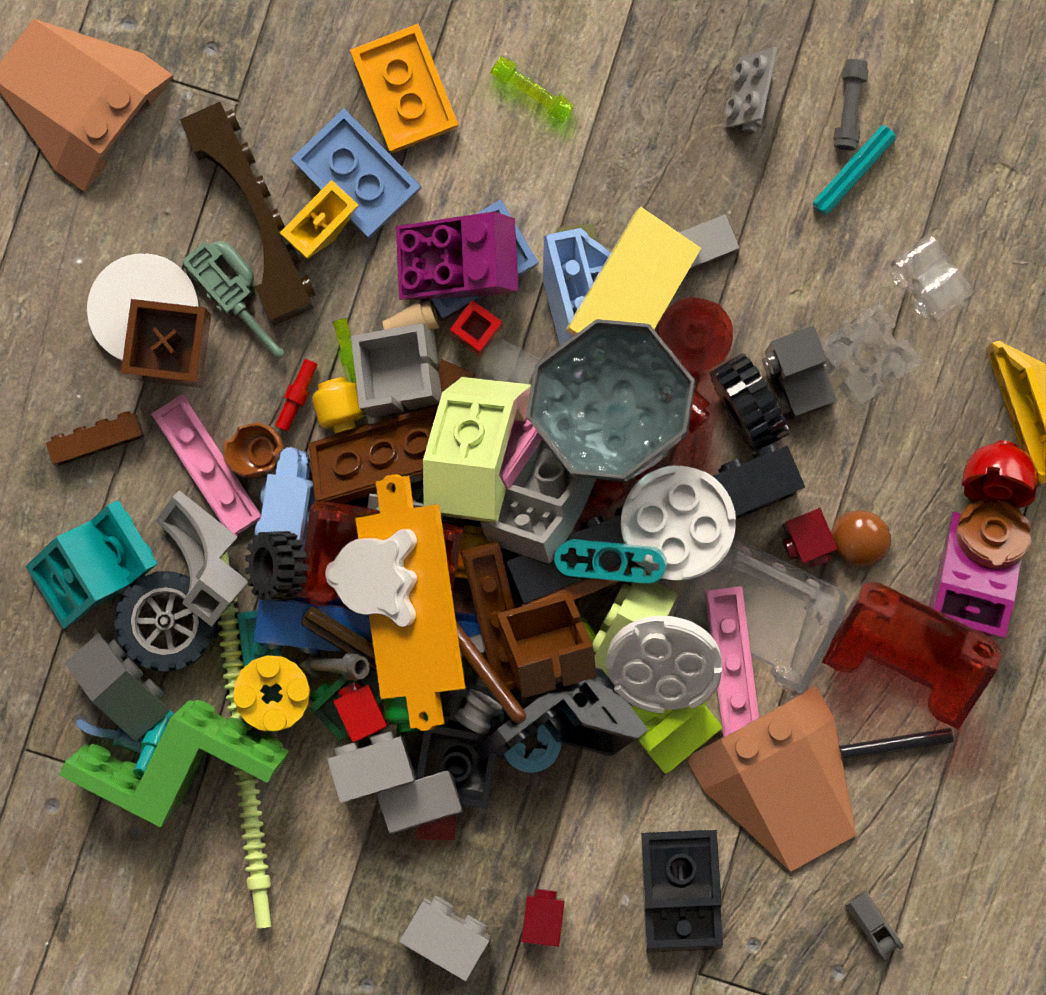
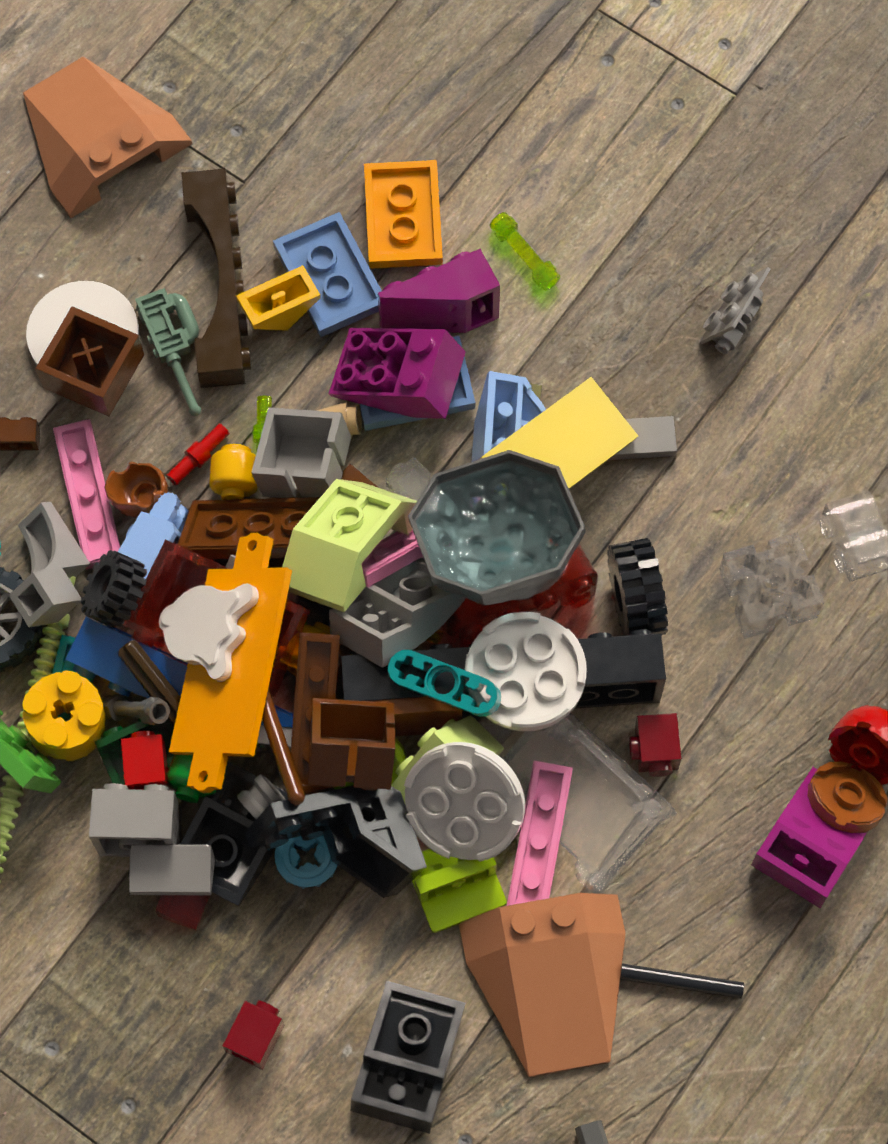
camera: 20 degrees right, 15 degrees down
(446, 937) = (145, 1016): light grey piece -> none
(476, 328) = (392, 441): red brick -> none
(477, 169) = (446, 297): none -> magenta slope
(703, 318) = (620, 503): clear red brick -> none
(799, 371) = (698, 571): dark grey brick -> none
(854, 73) = (816, 380): dark grey bar -> none
(854, 170) = (813, 415): teal axle -> none
(861, 538) = (710, 763): dark orange hair -> none
(919, 645) = (729, 872): clear red windscreen -> none

